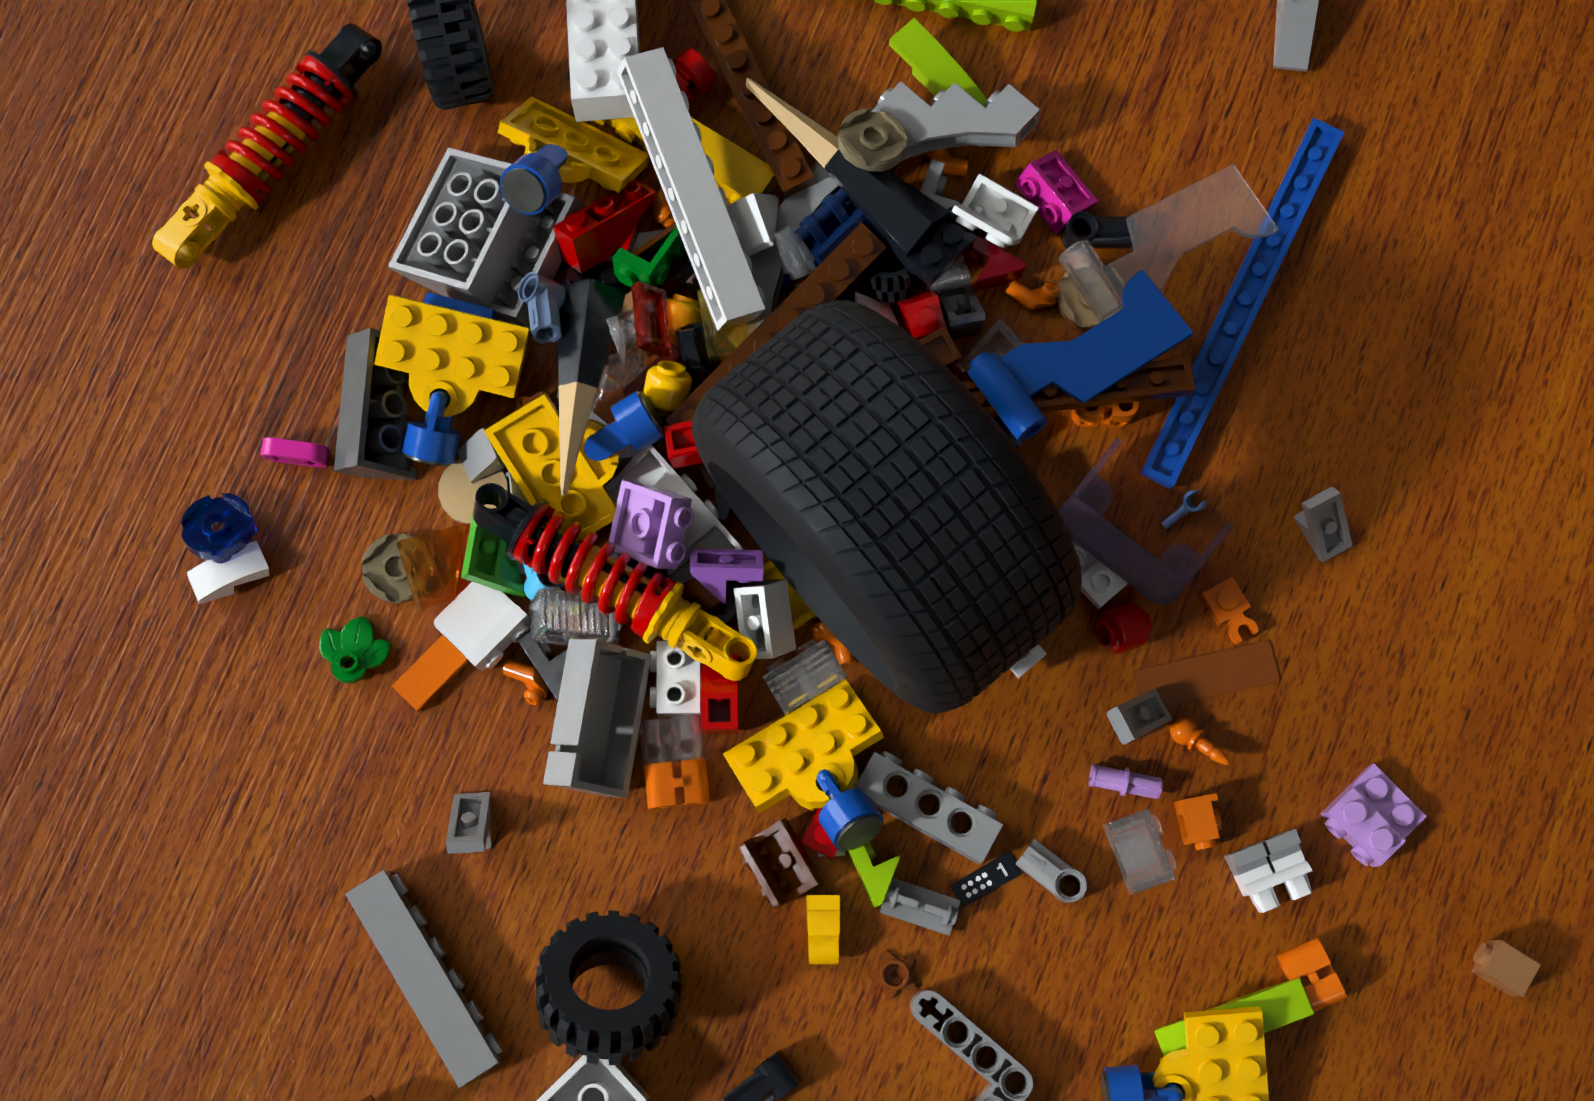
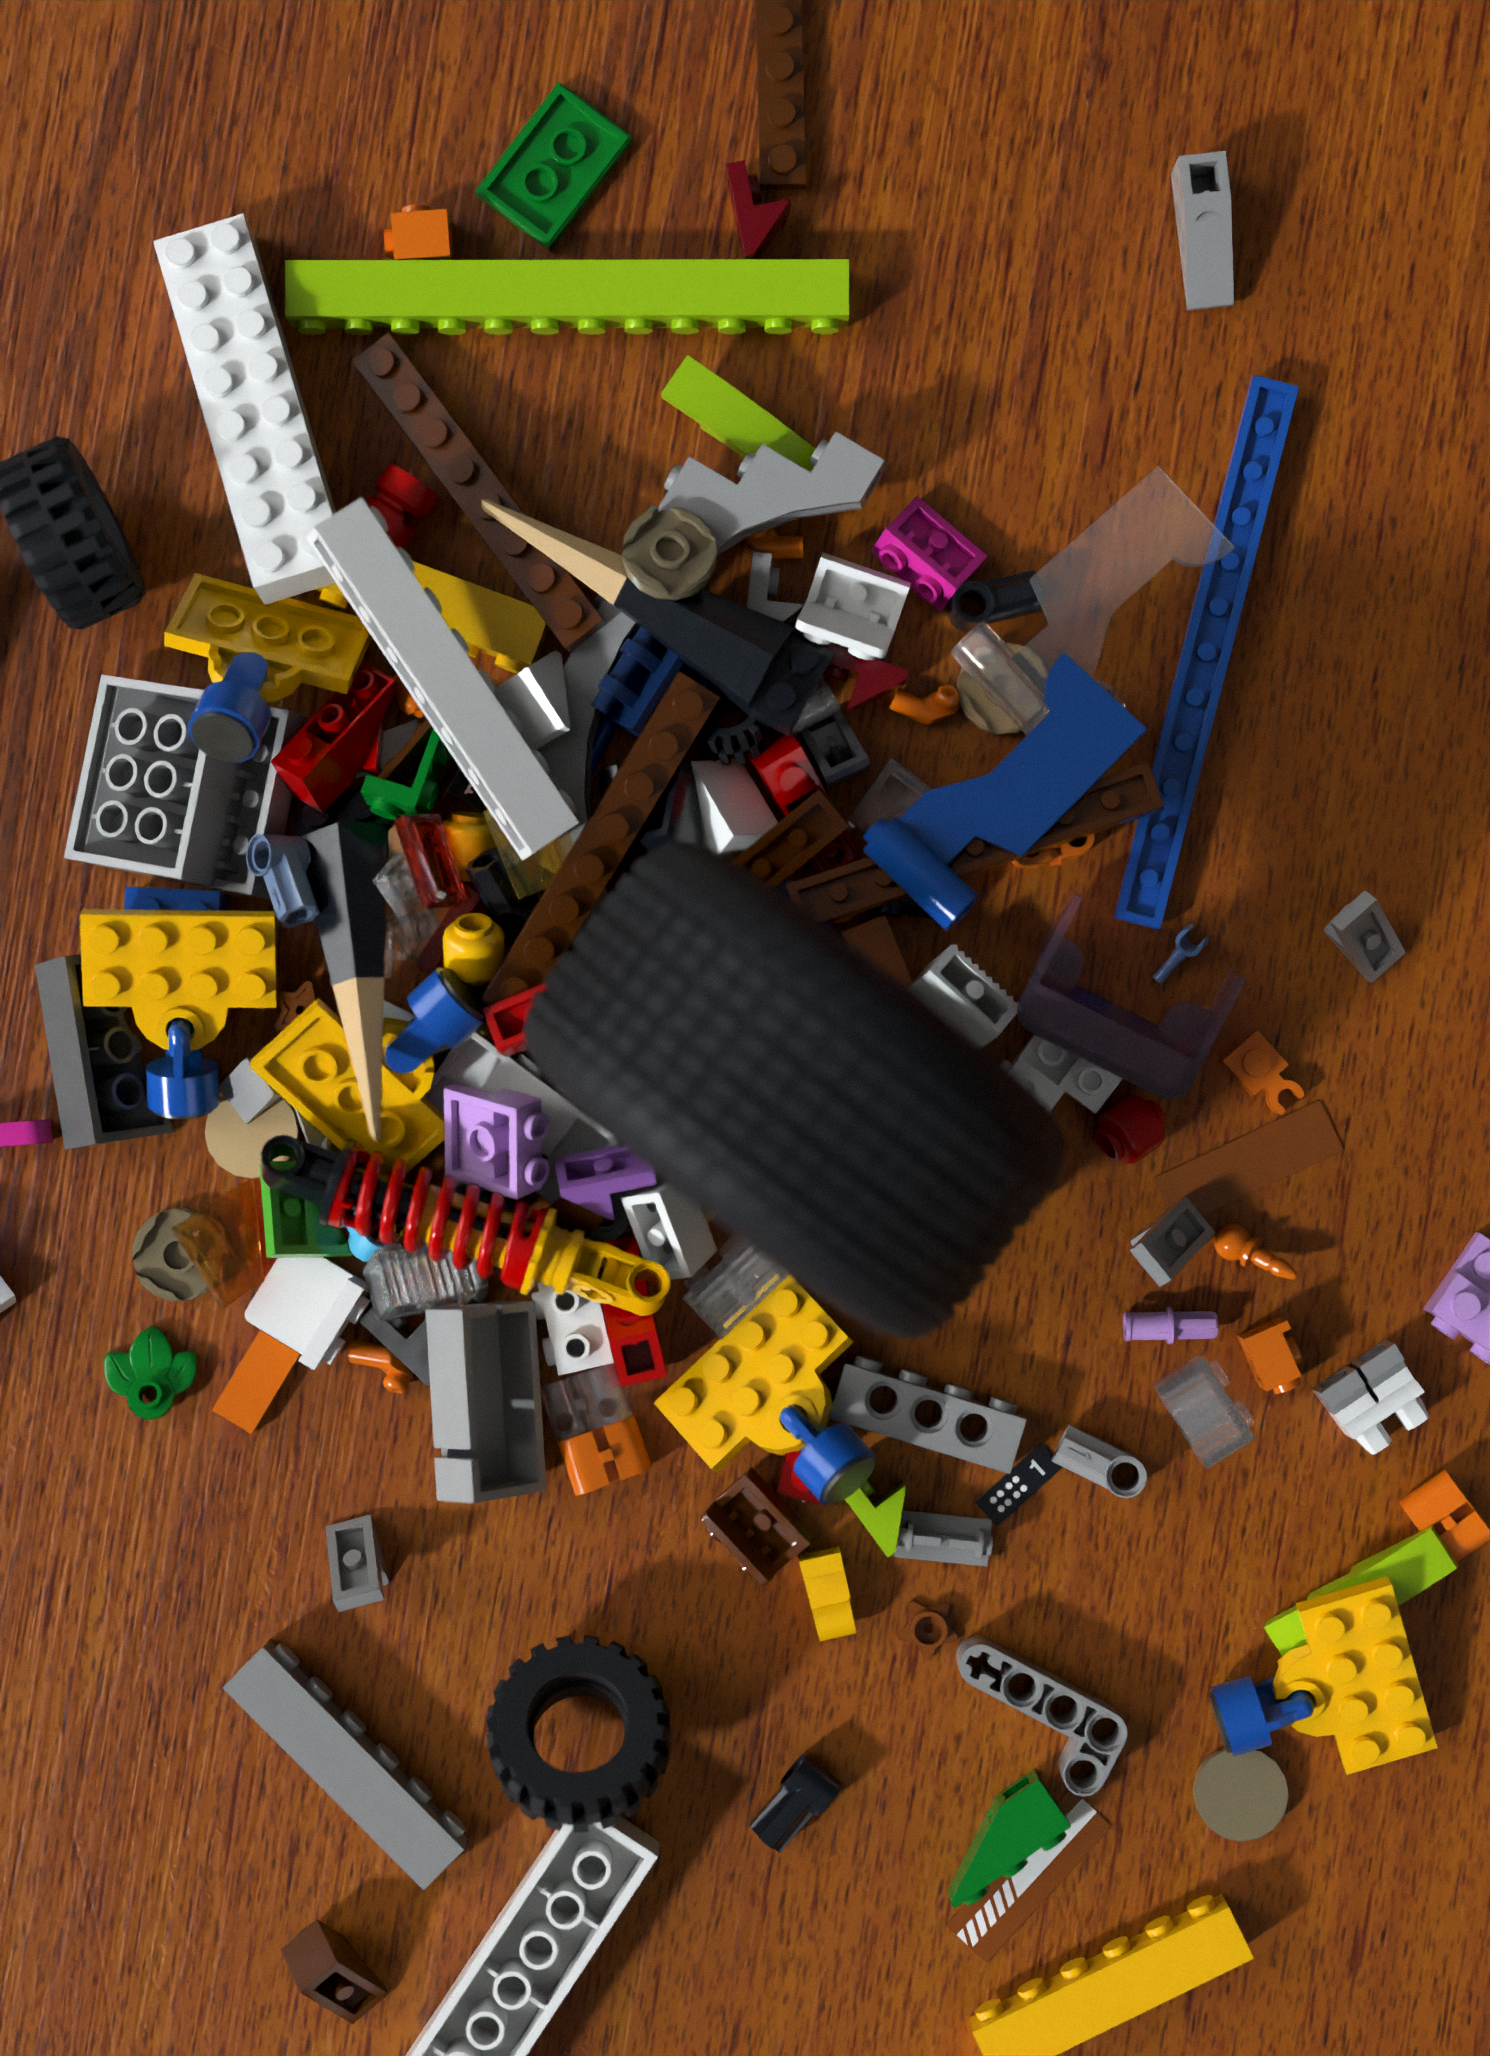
camera: 10 degrees left, 10 degrees up
(793, 253) = (600, 733): clear cone -> none

